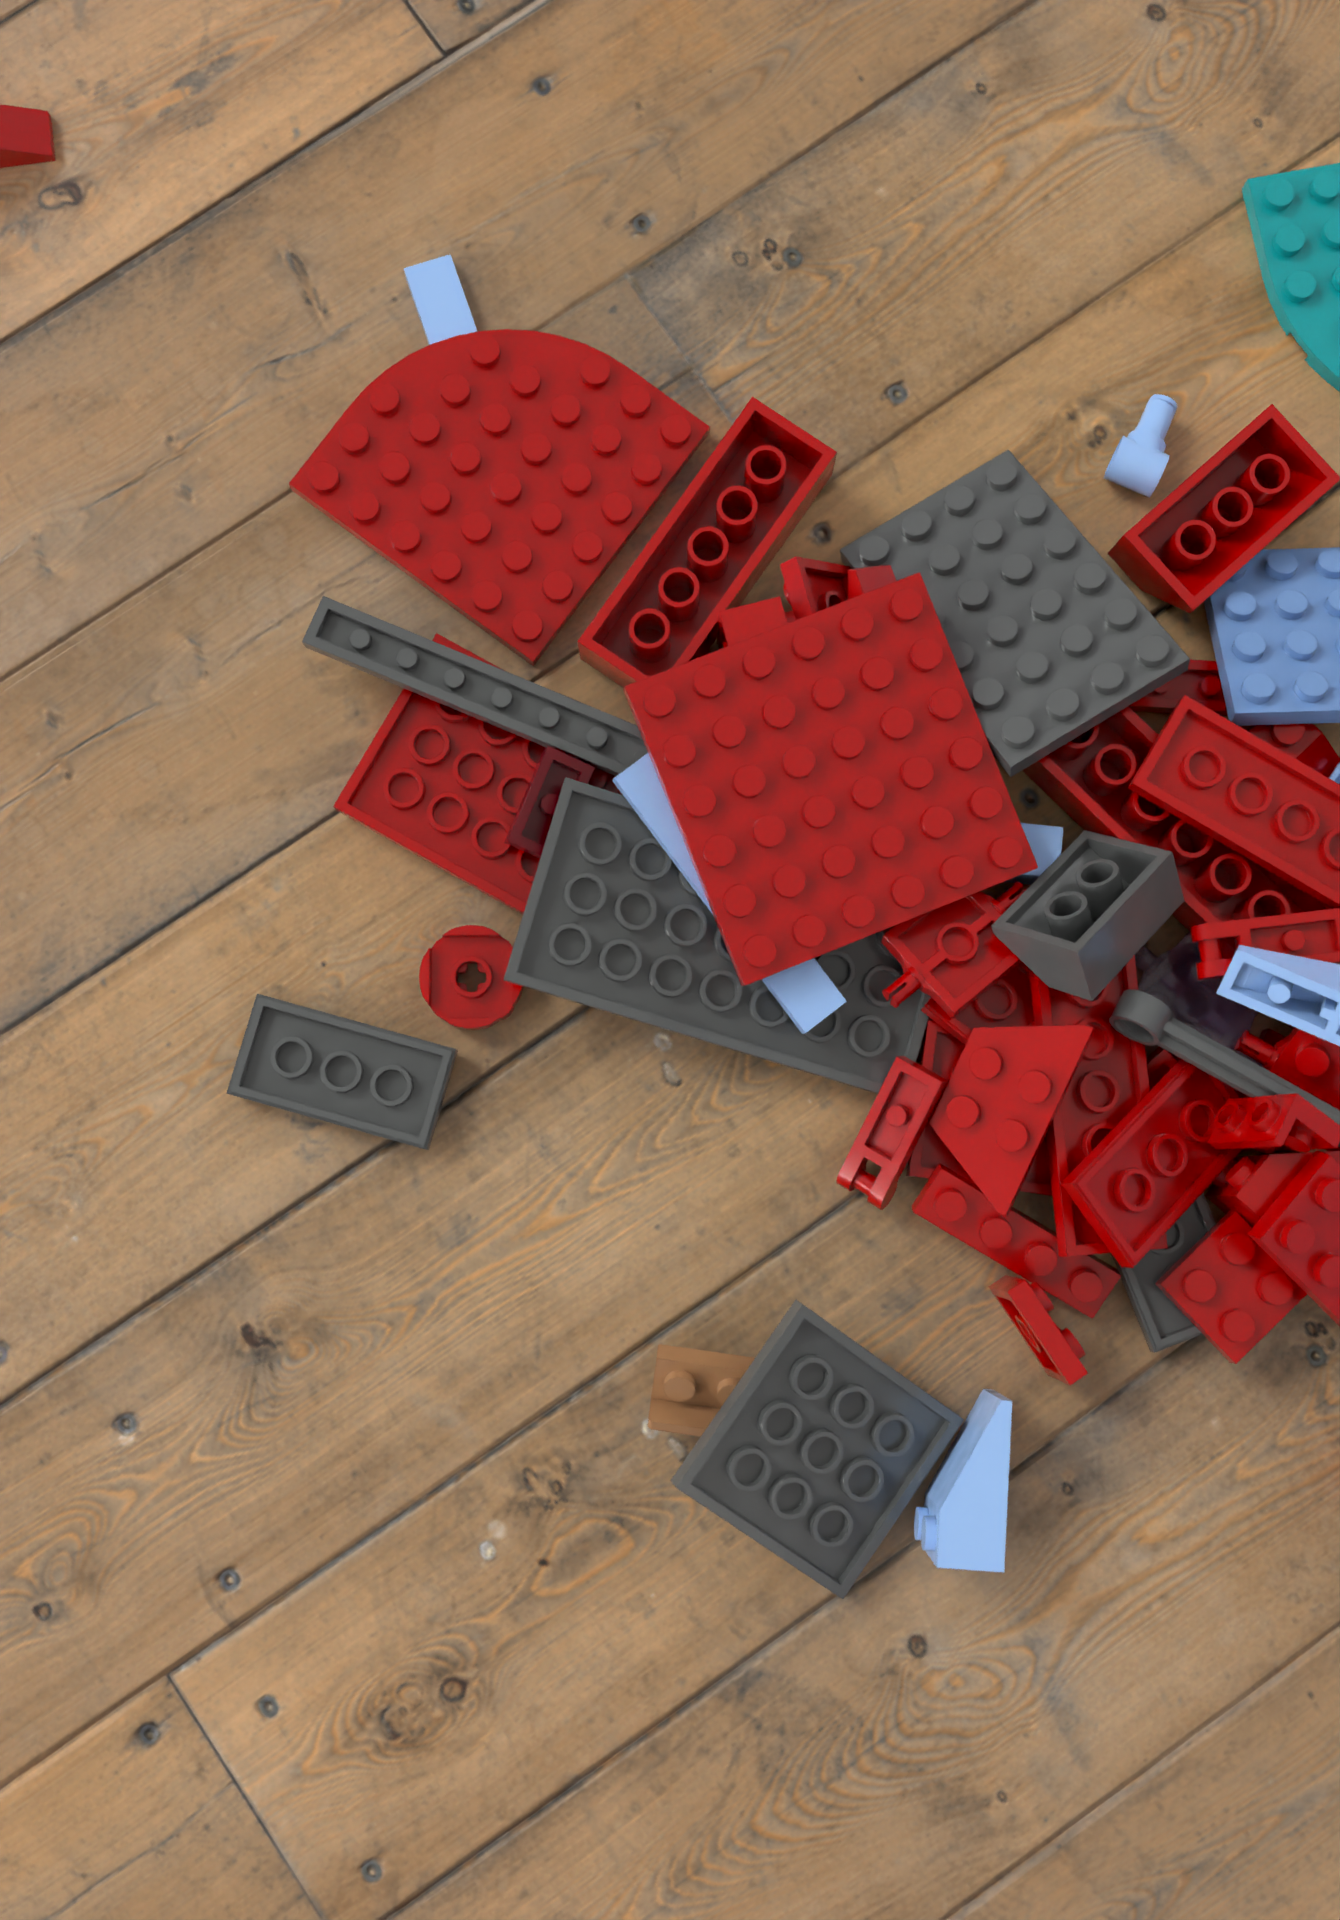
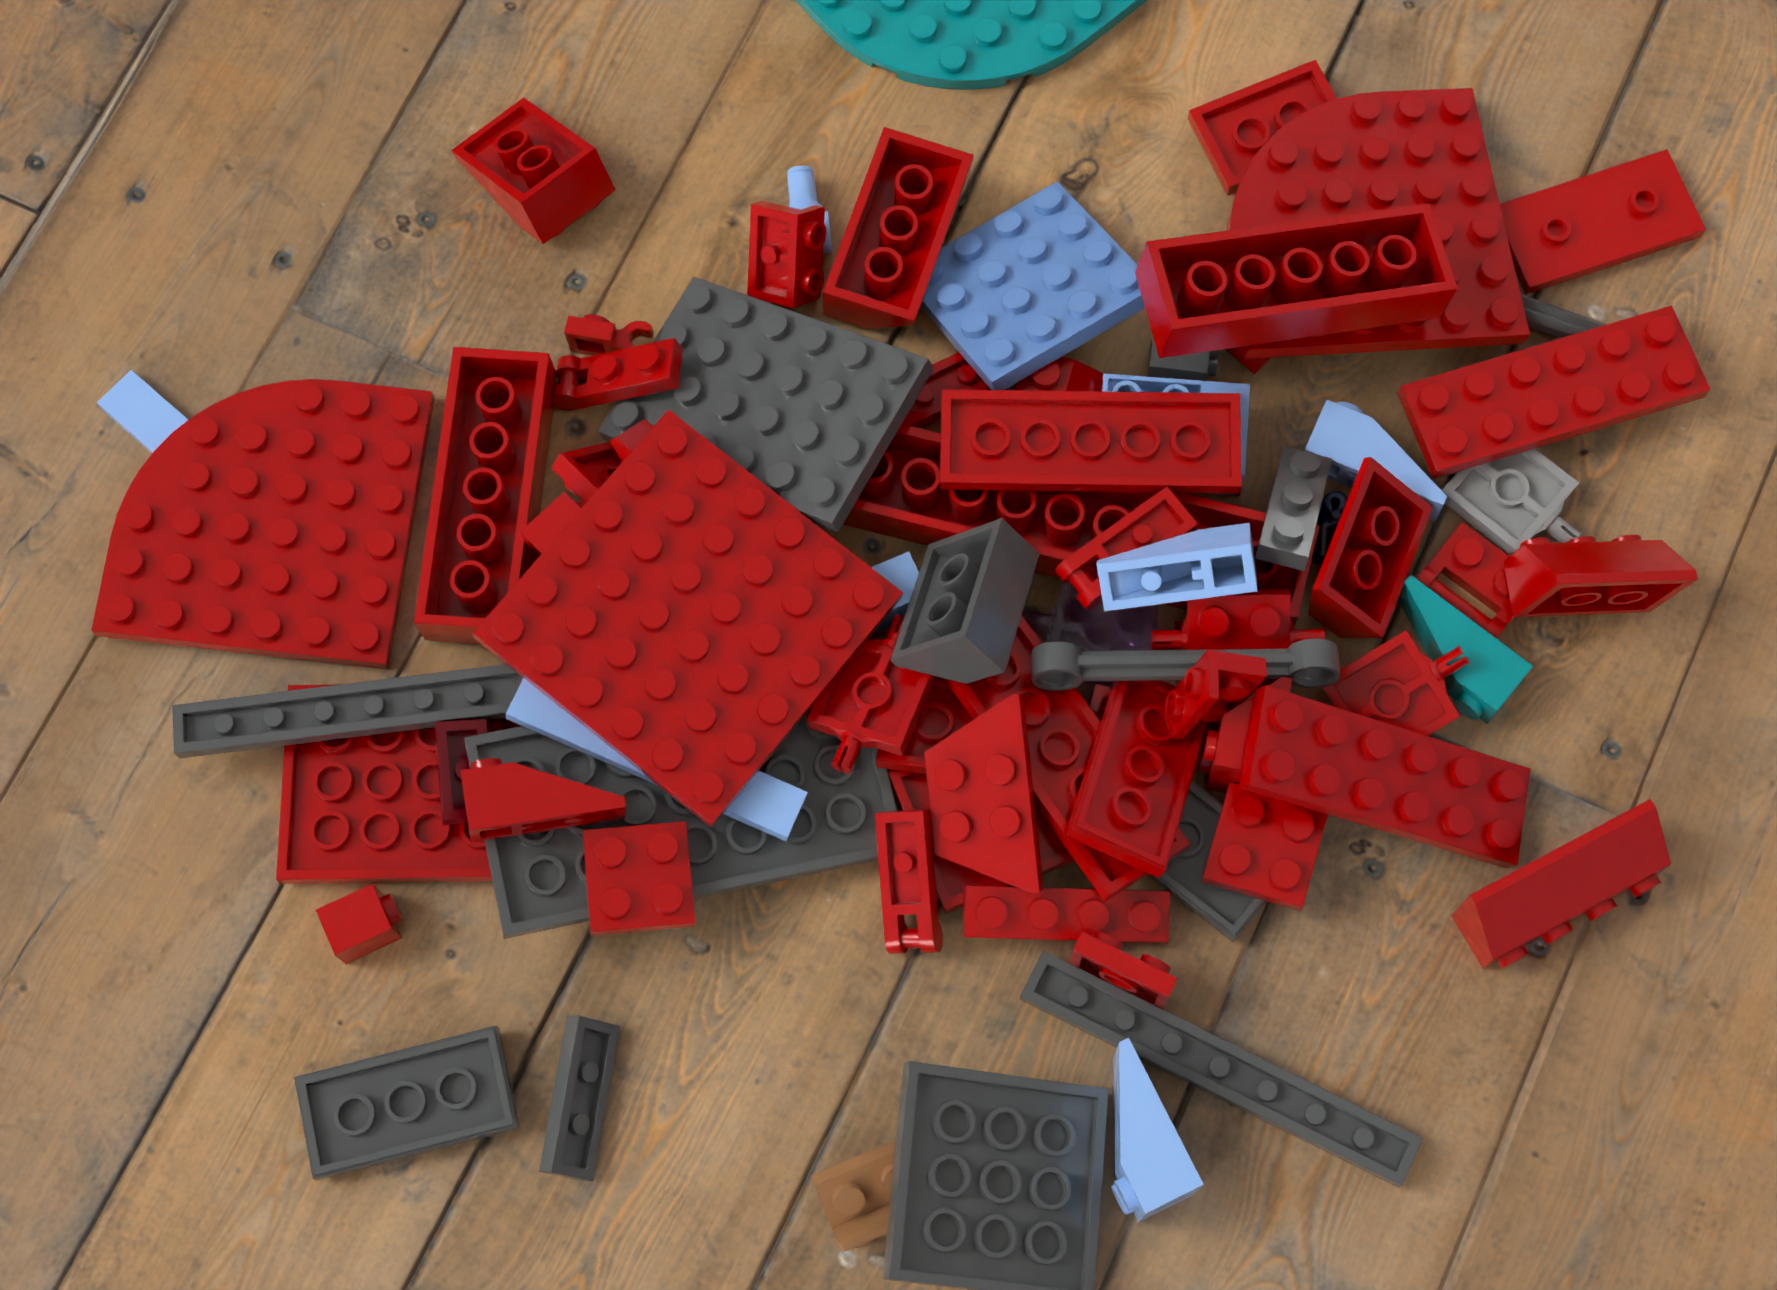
camera: 25 degrees left, 10 degrees down
(386, 887) = (360, 923): none -> red brick
(451, 957) = (472, 987): red plate -> none
(493, 1156) = (579, 1098): none -> dark grey plate
(584, 866) = (523, 800): none -> red slope
(651, 995) = (638, 878): none -> red plate
(888, 507) = (617, 375): none -> red plate
(890, 461) = (598, 335): none -> red plate
(919, 264) = (535, 169): none -> red slope
(1076, 1461) = (1222, 1069): none -> dark grey plate
(1108, 476) = (786, 253): none -> red bracket

